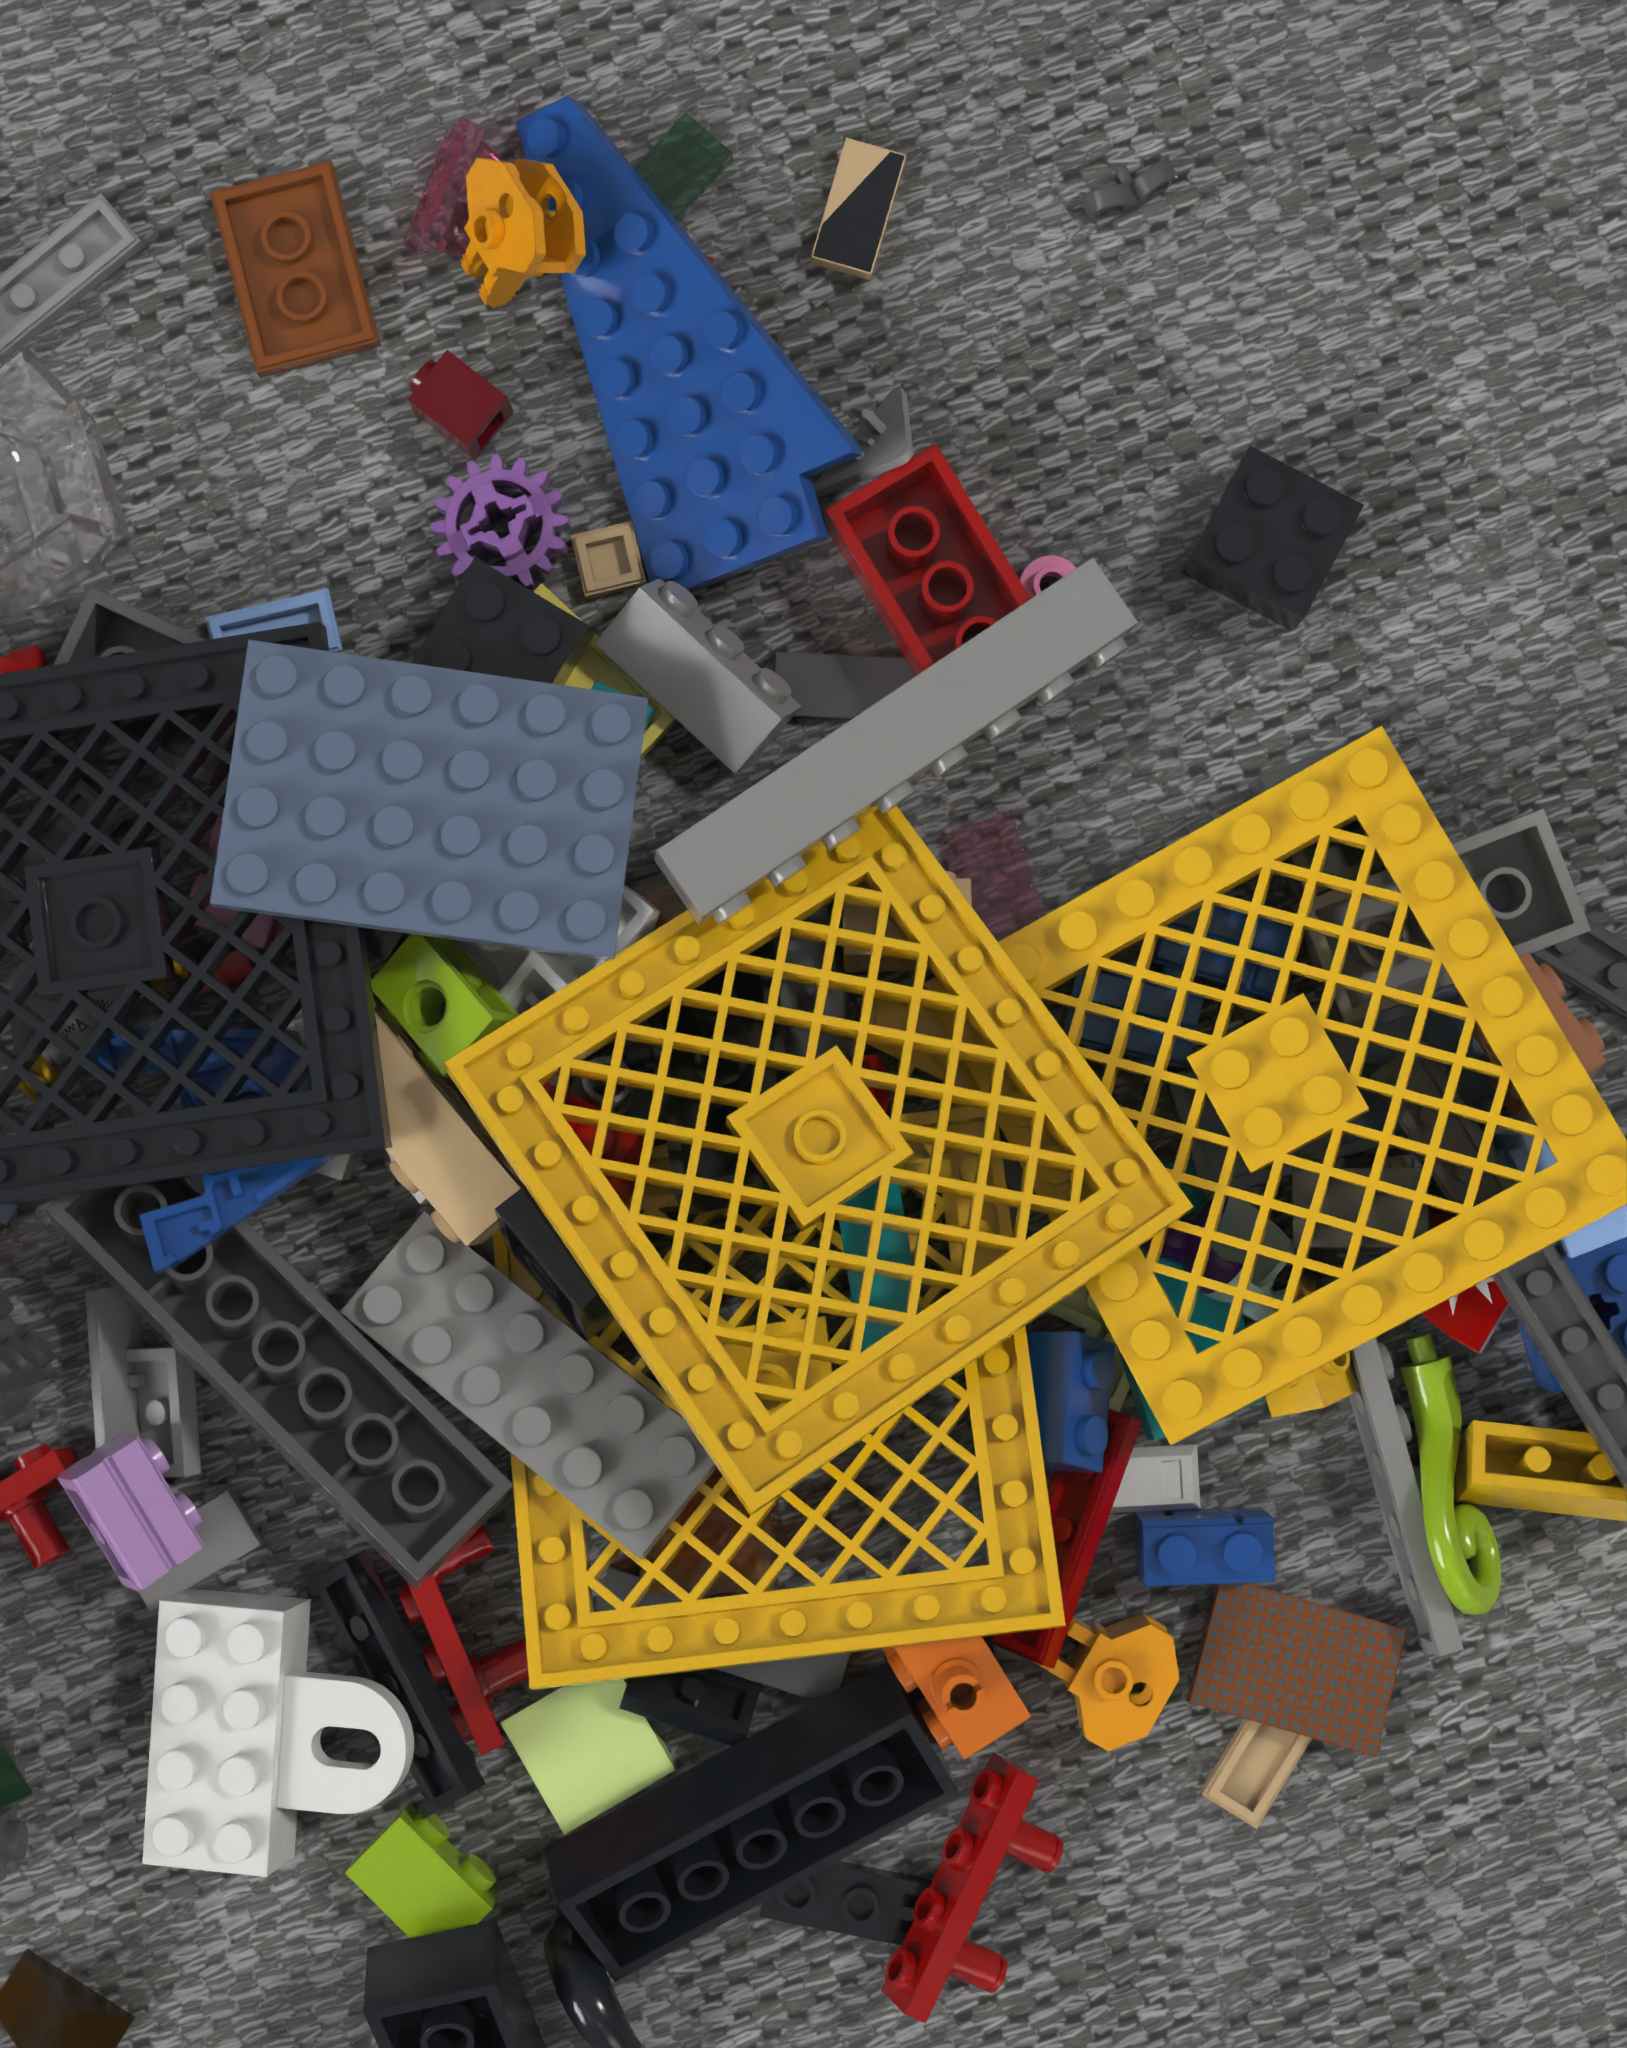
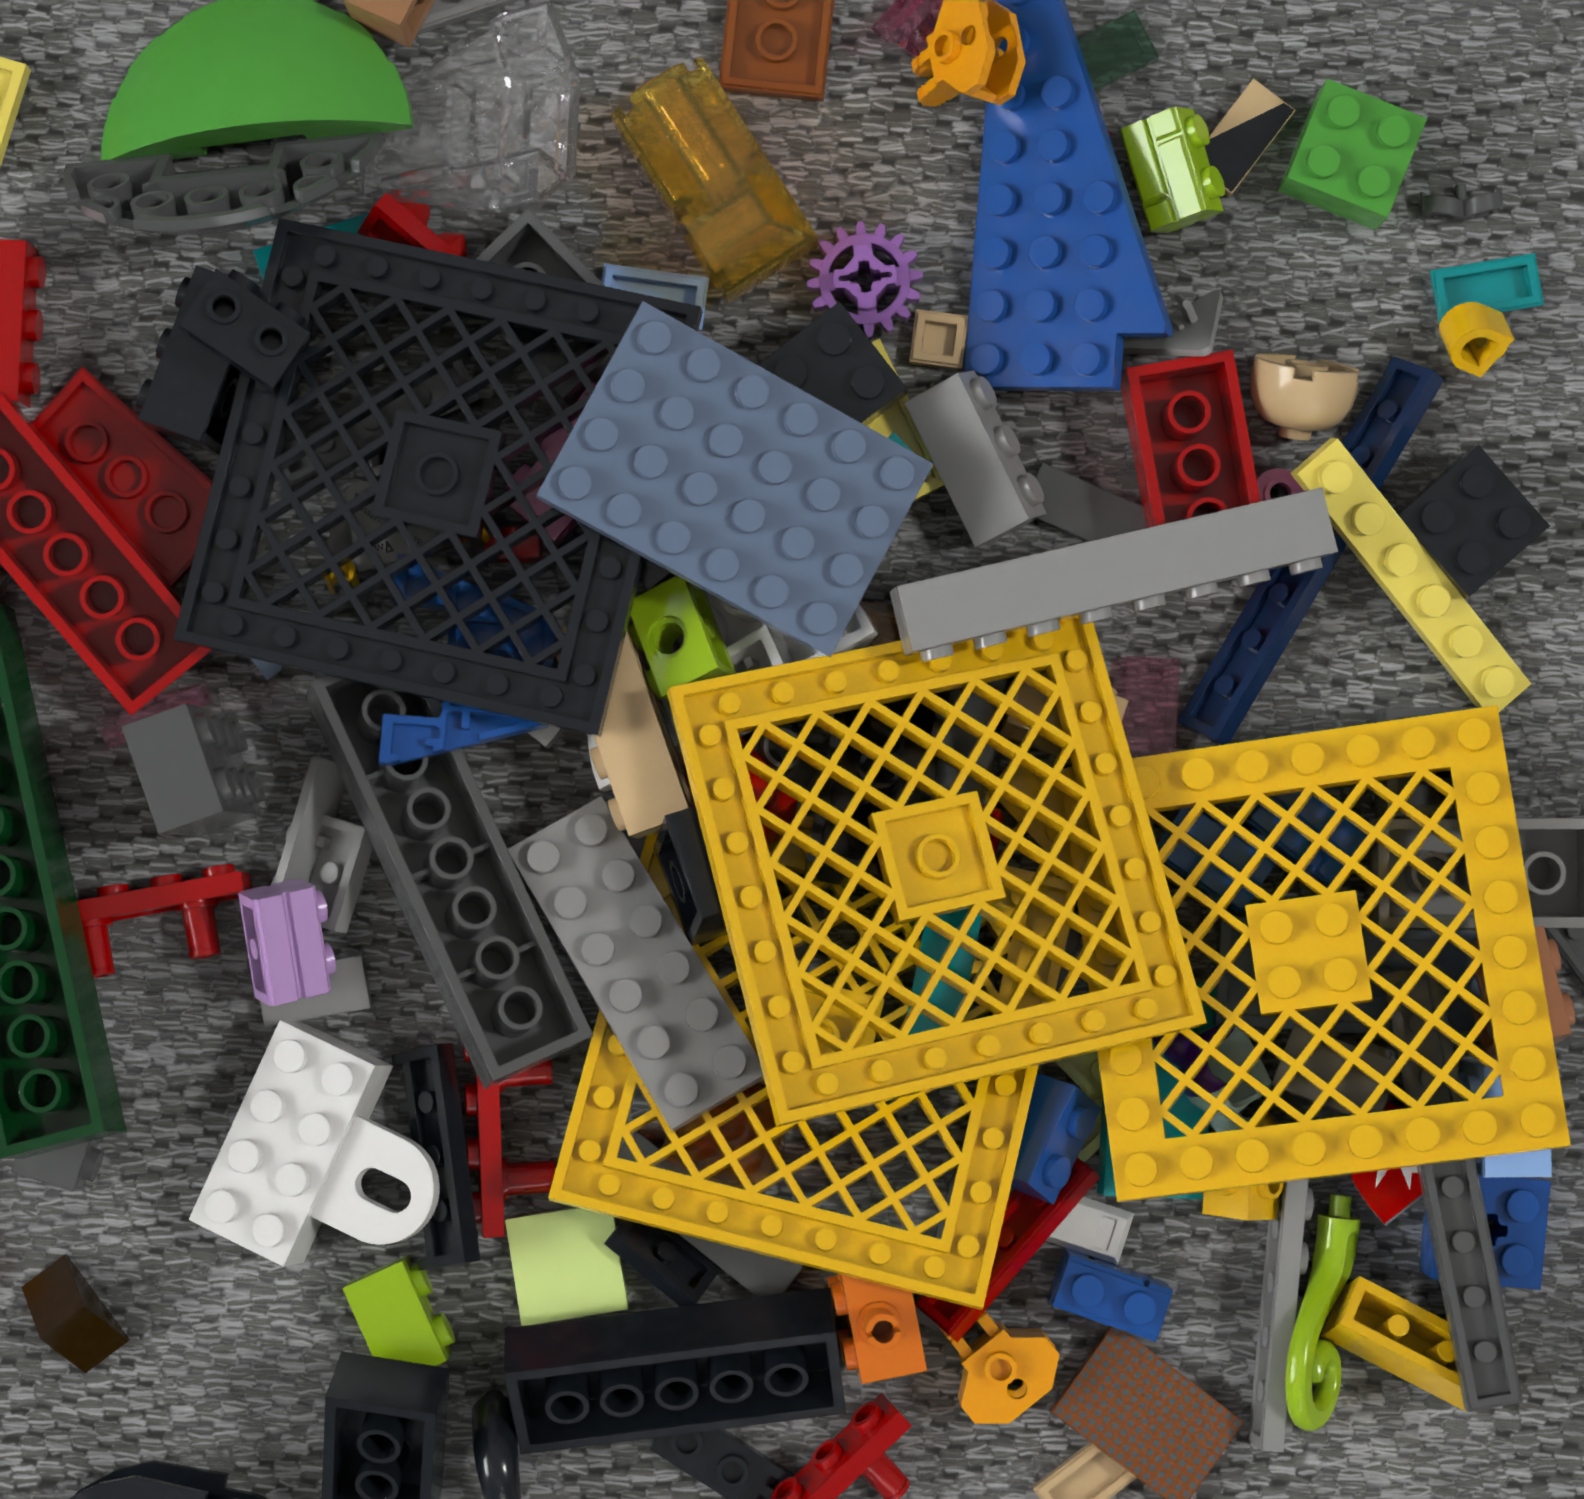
camera: 15 degrees right, 0 degrees up
(286, 474) = (714, 178): none -> clear yellow brick
(459, 403) = (868, 172): dark red brick -> none
(795, 270) = (1173, 169): none -> lime brick
(987, 179) = (1352, 154): none -> bright green brick
(1033, 464) = (1302, 393): none -> tan cylinder
(1101, 699) = (1284, 600): none -> dark blue plate
(1192, 270) = (1497, 283): none -> teal tile
(1200, 328) = (1475, 336): none -> yellow plate
(1232, 621) = (1411, 578): none -> light yellow plate

